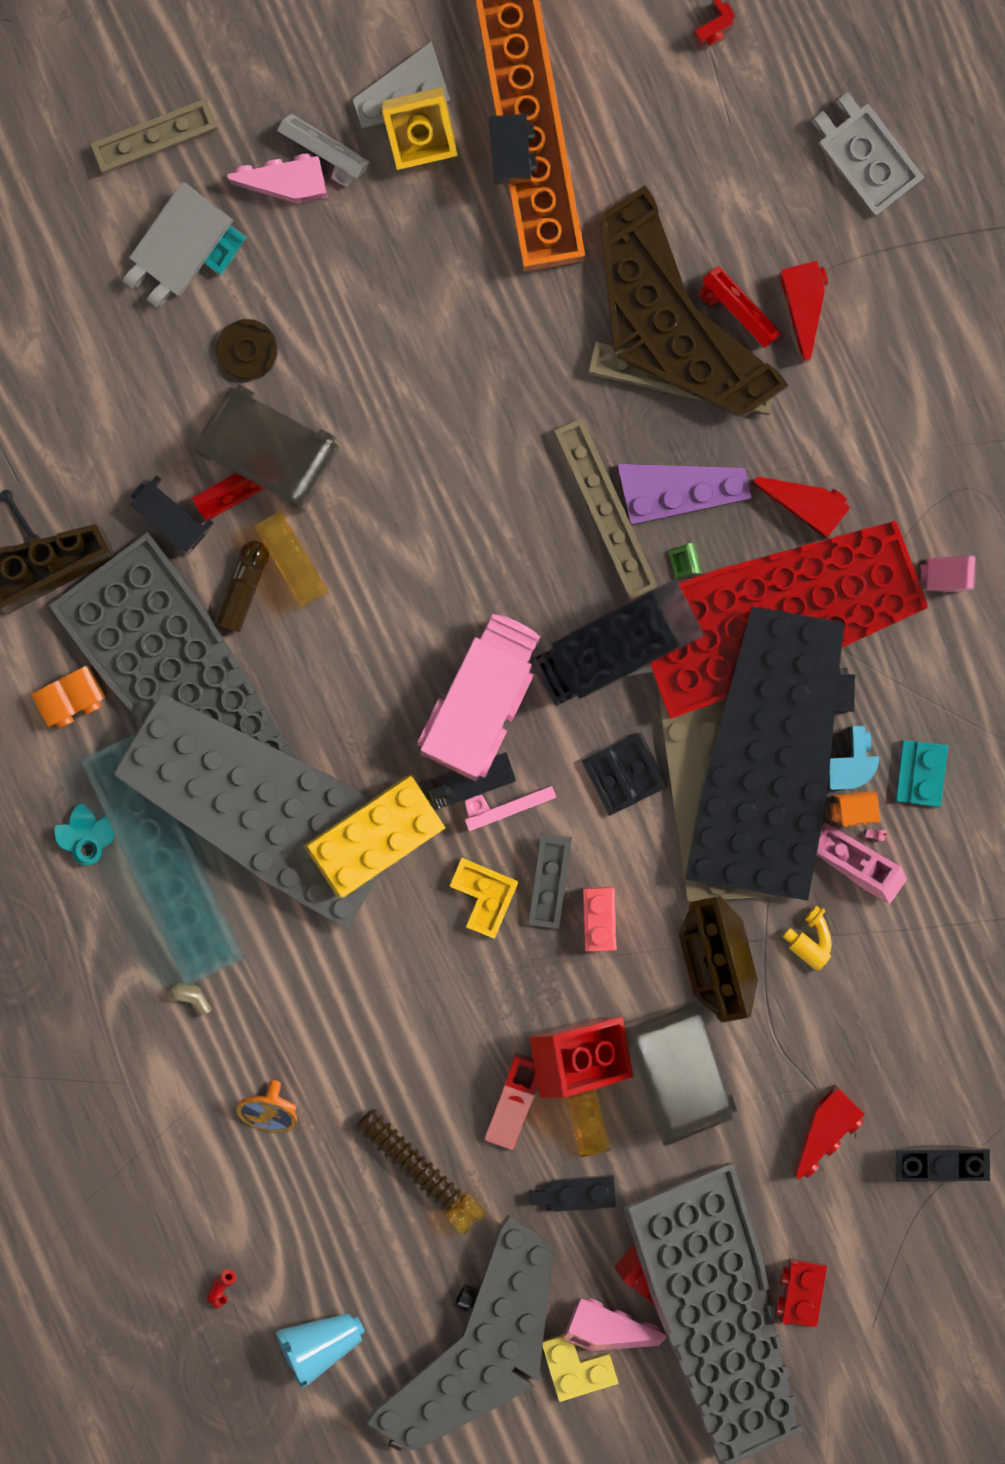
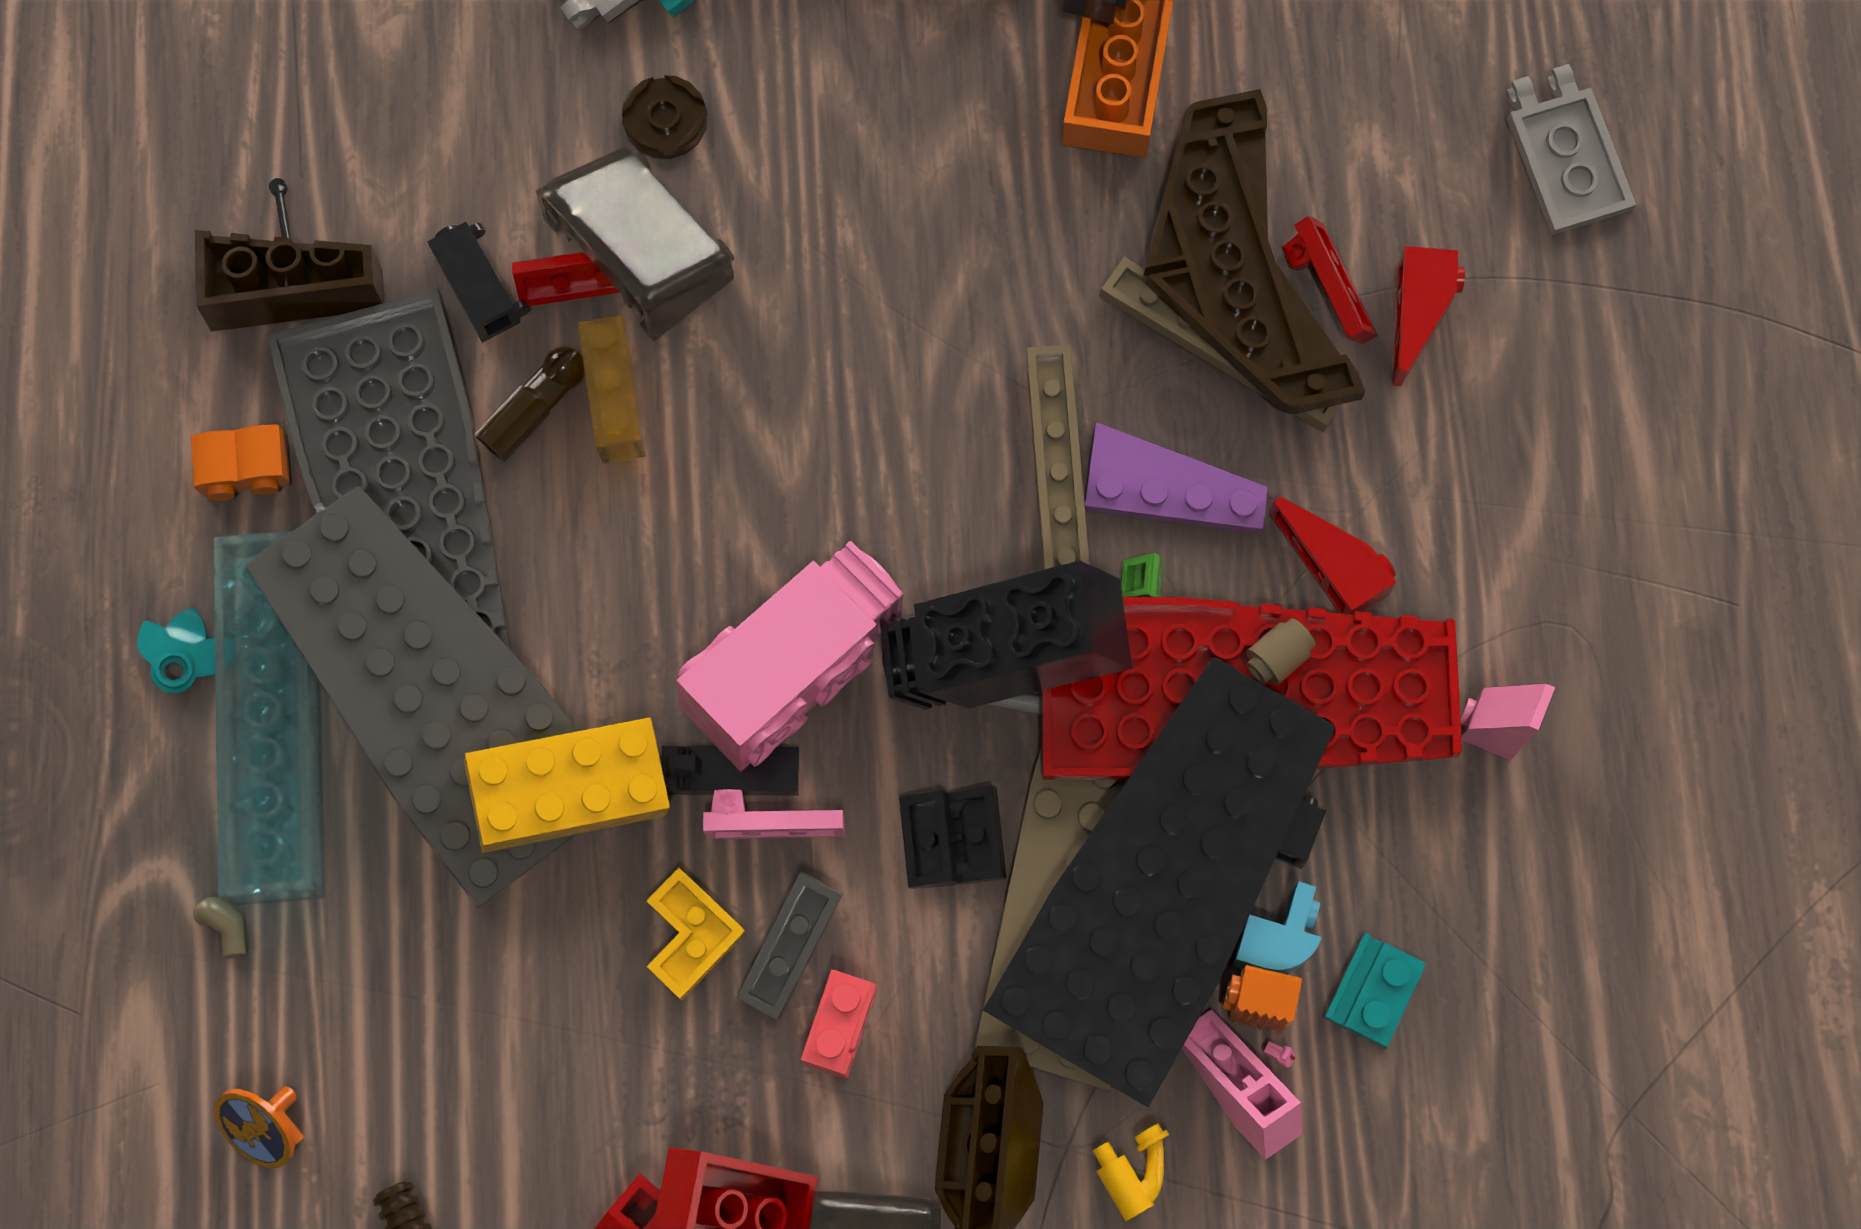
camera: 25 degrees right, 15 degrees down
(793, 587) = (1280, 652): none -> dark tan brick

